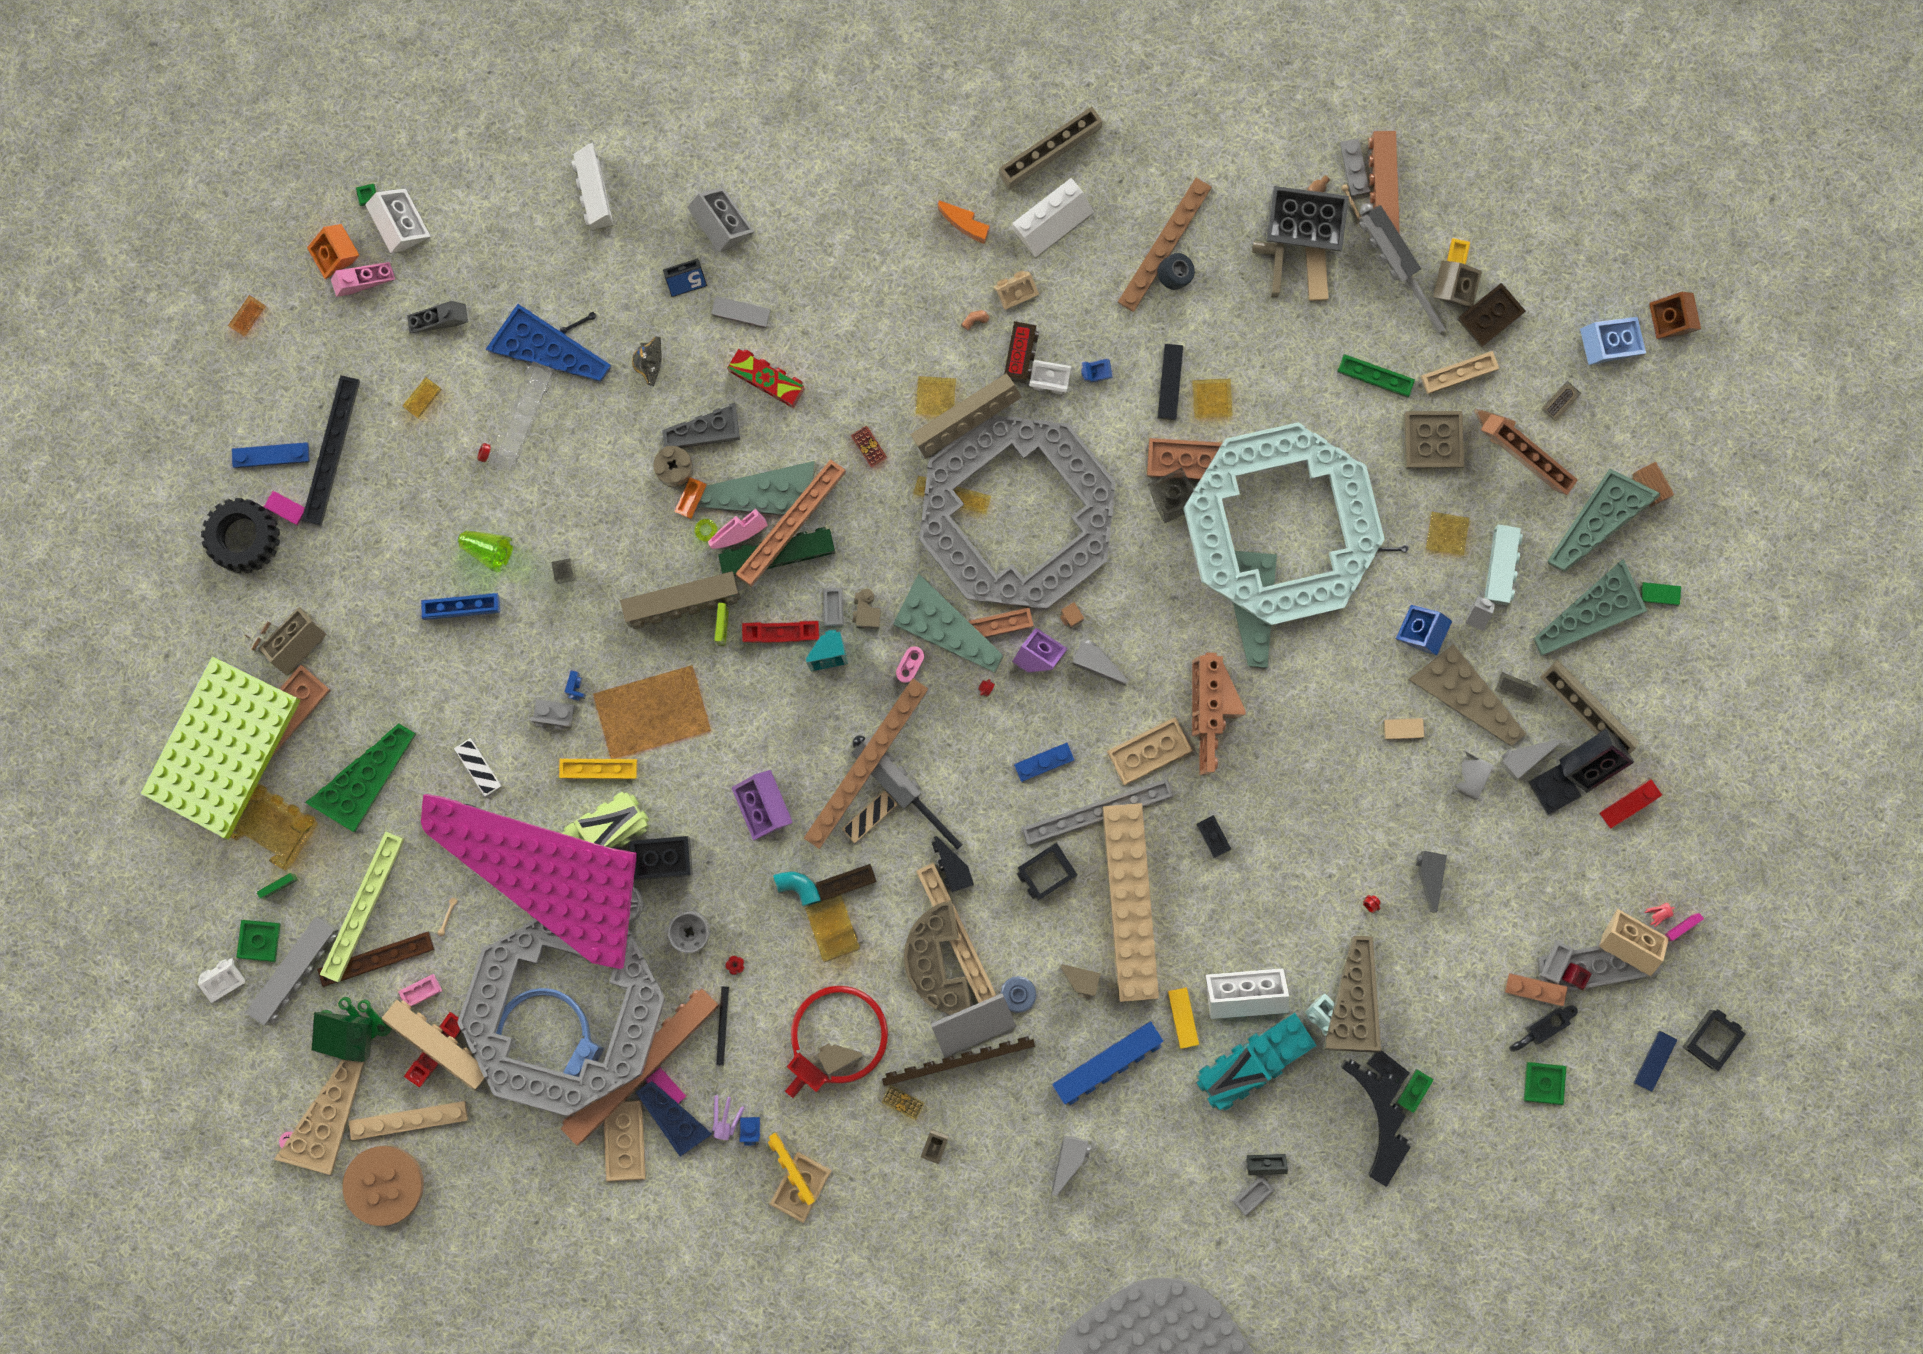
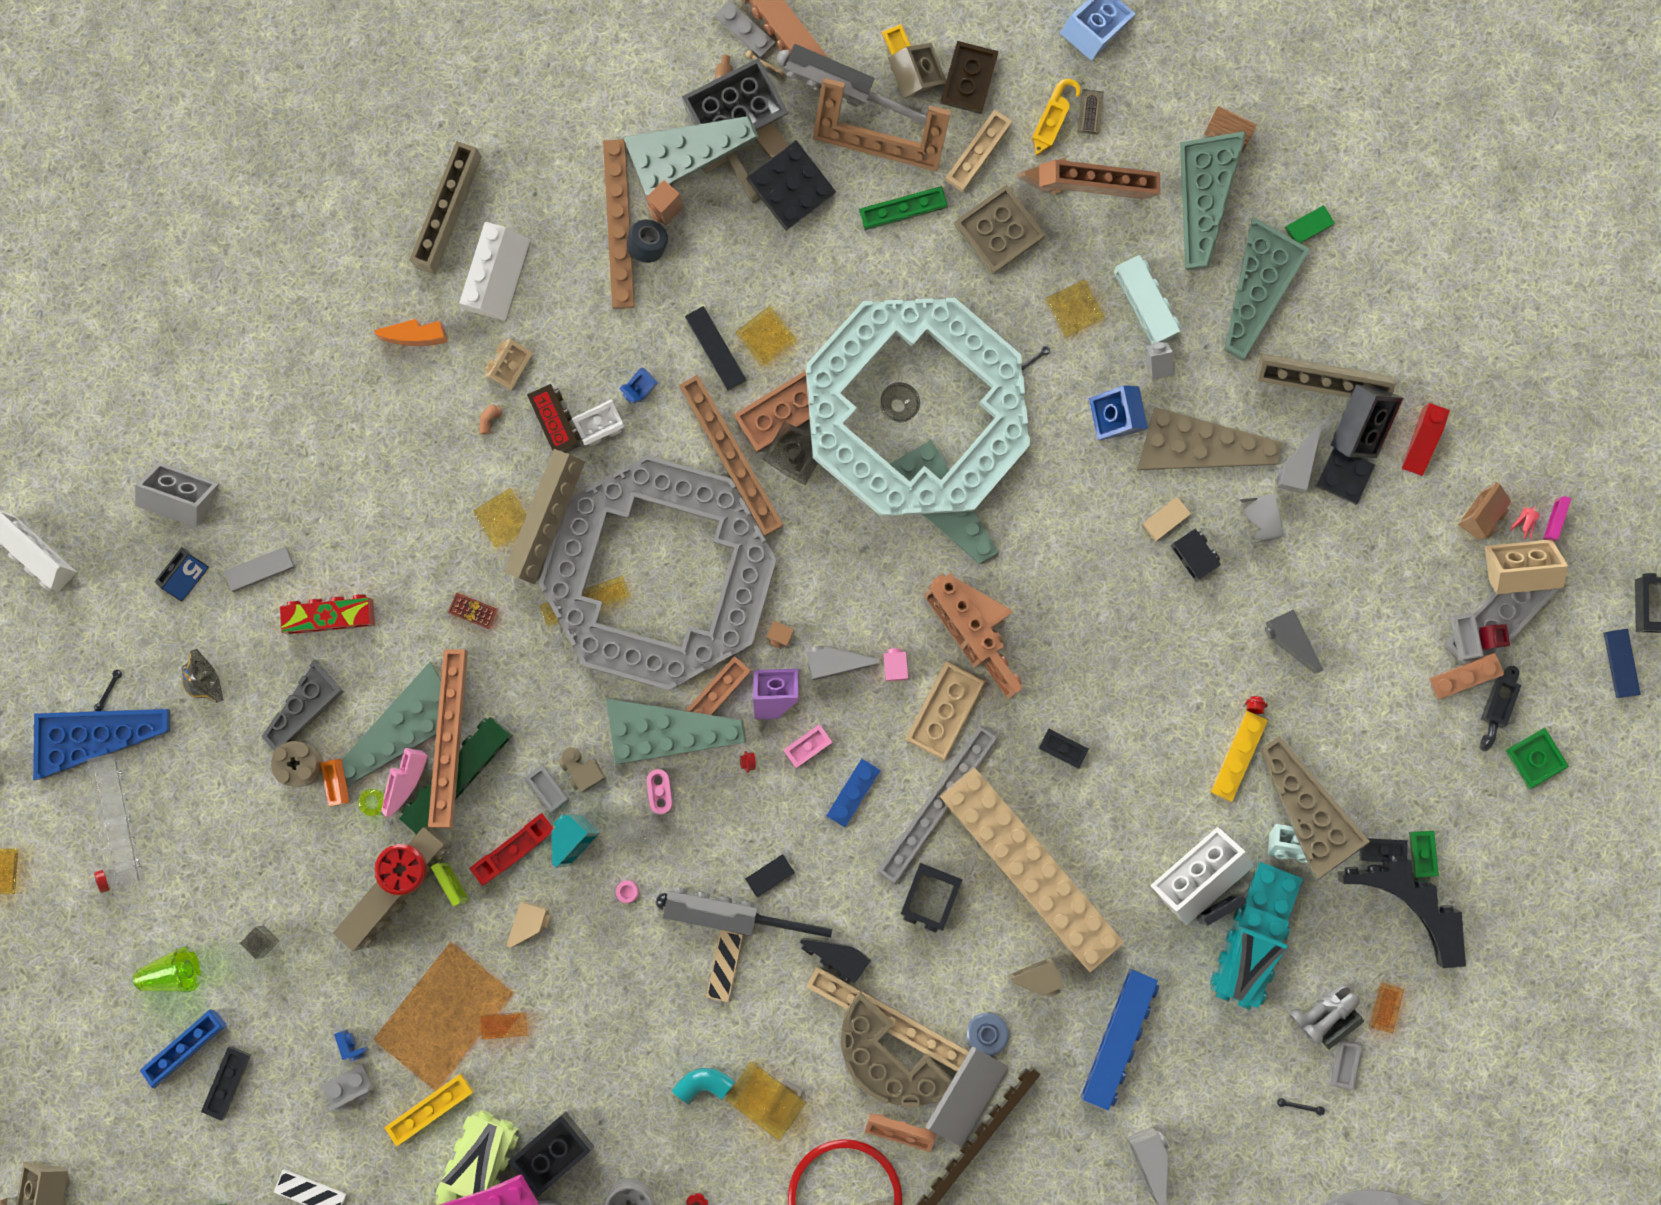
camera: 30 degrees left, 0 degrees up
(472, 651) = (225, 1083): none -> black plate
(689, 748) = (504, 1025): none -> clear orange tile
(701, 600) = (410, 879): none -> red wheel
(755, 690) = (528, 922): none -> tan slope
(761, 804) = (612, 1029): medium lavender slope -> none
(838, 718) = (627, 891): none -> bright pink tile
(846, 882) = (747, 1046): dark brown plate -> none
(866, 763) = (684, 920): medium nougat plate -> none
(910, 1017) = (900, 1132): none -> nougat plate
(945, 777) = (770, 875): none -> black tile
(1035, 707) = (807, 746): none -> bright pink plate
(1127, 465) = (731, 455): none -> medium nougat plate
(1137, 694) = (895, 665): none -> bright pink brick
(1183, 1018) = (1158, 942): yellow tile -> none
(1207, 253) = (664, 203): none -> nougat brick
(1211, 1213) = (1319, 1110): none -> black hinge
(1242, 224) = (685, 150): none -> wing
(1243, 1024) = (1221, 909): none -> black tile
(1276, 1148) = (1336, 1003): none -> light grey piece
(1281, 510) = (904, 393): none -> clear smoke piece
(1306, 303) = (791, 185): none -> black plate
(1310, 1177) = (1386, 1007): none -> clear orange tile
(1334, 930) = (1239, 756): none -> yellow plate
(1363, 283) = (923, 154): none -> medium nougat plate
(1406, 768) = (1196, 554): none -> black brick
(1516, 688) = (1242, 407): clear smoke tile -> none
(1531, 386) = (1053, 116): none -> yellow plate
(1636, 885) = (1486, 511): none -> medium nougat slope

